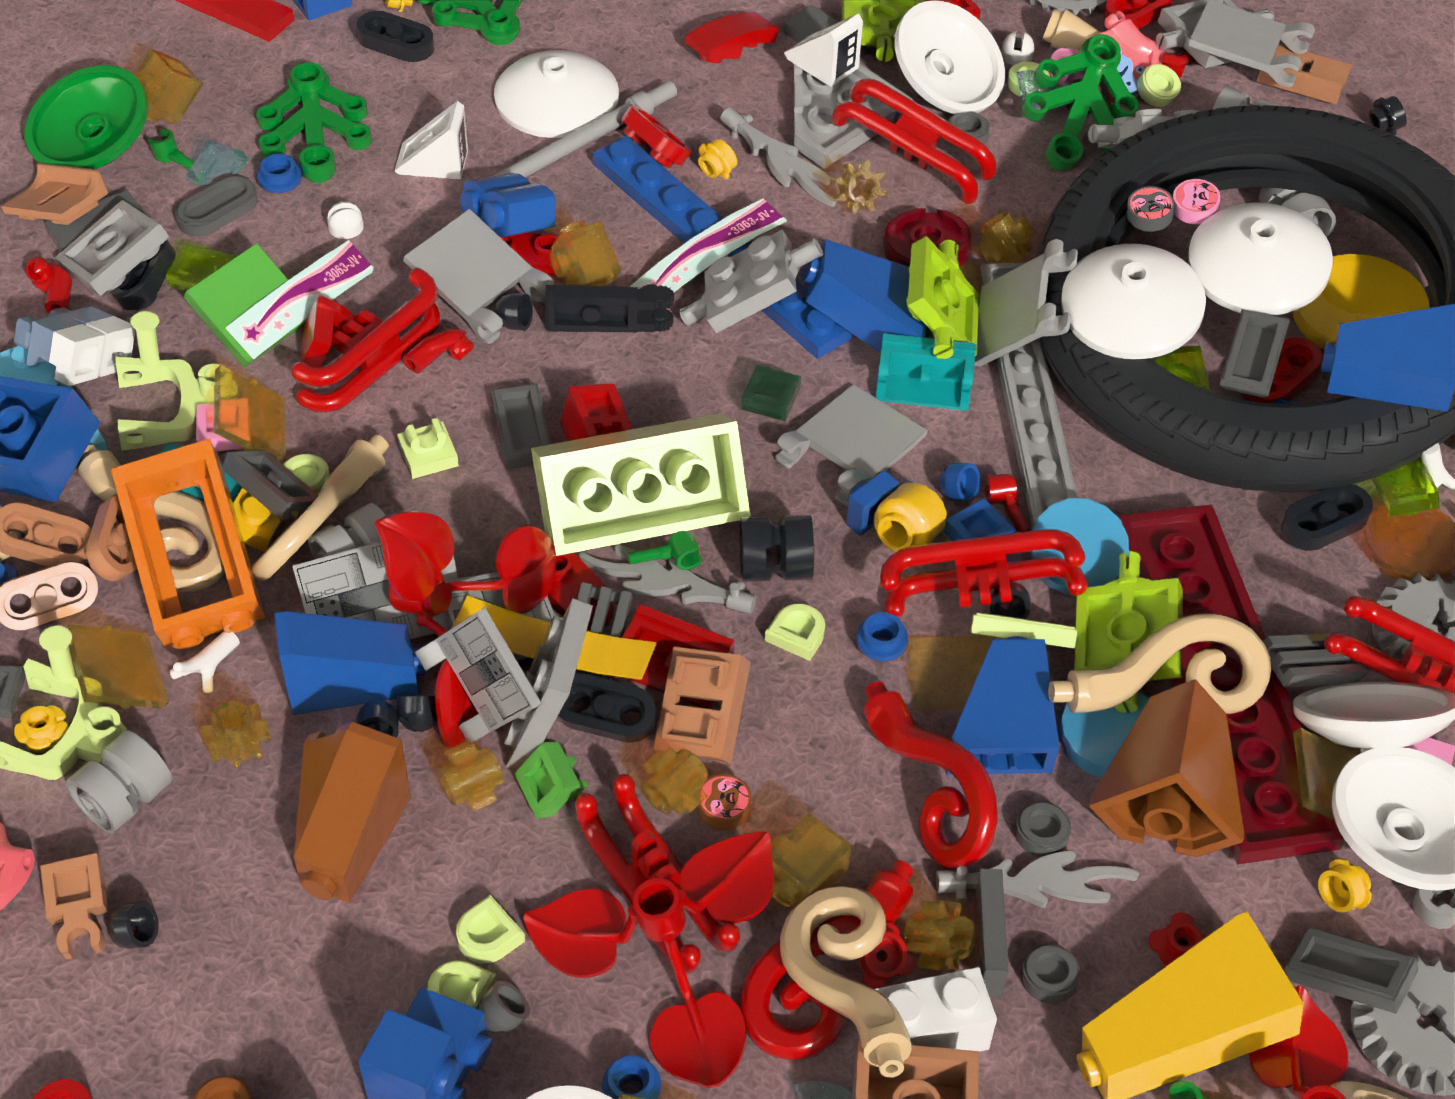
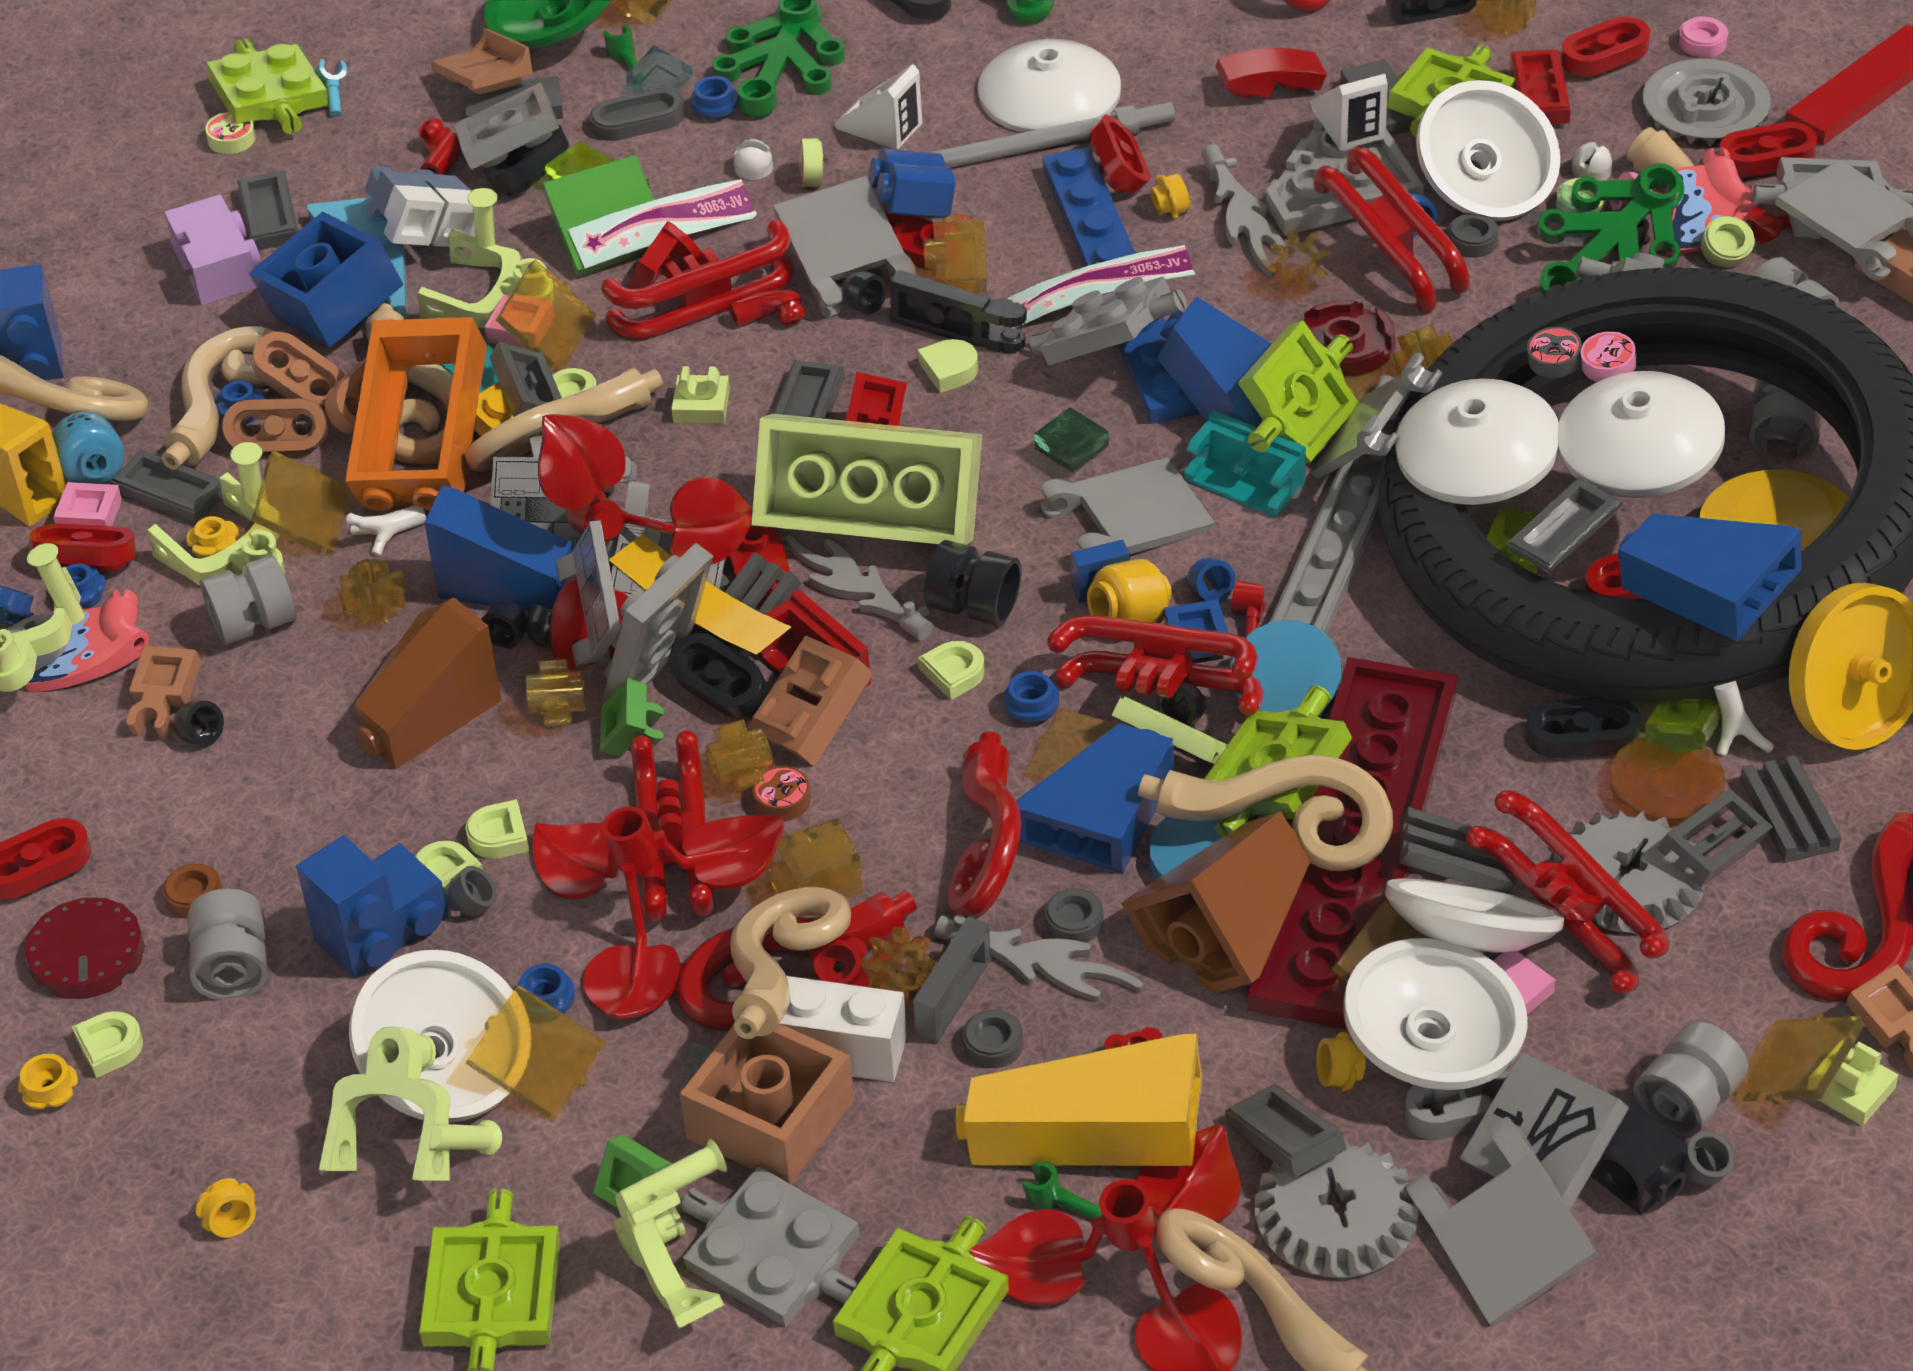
camera: 30 degrees right, 5 degrees down
(400, 209) = (810, 162): none -> yellowish green tile
(623, 354) = (949, 363): none -> yellowish green tile
(680, 547) = (880, 558): green hand -> none

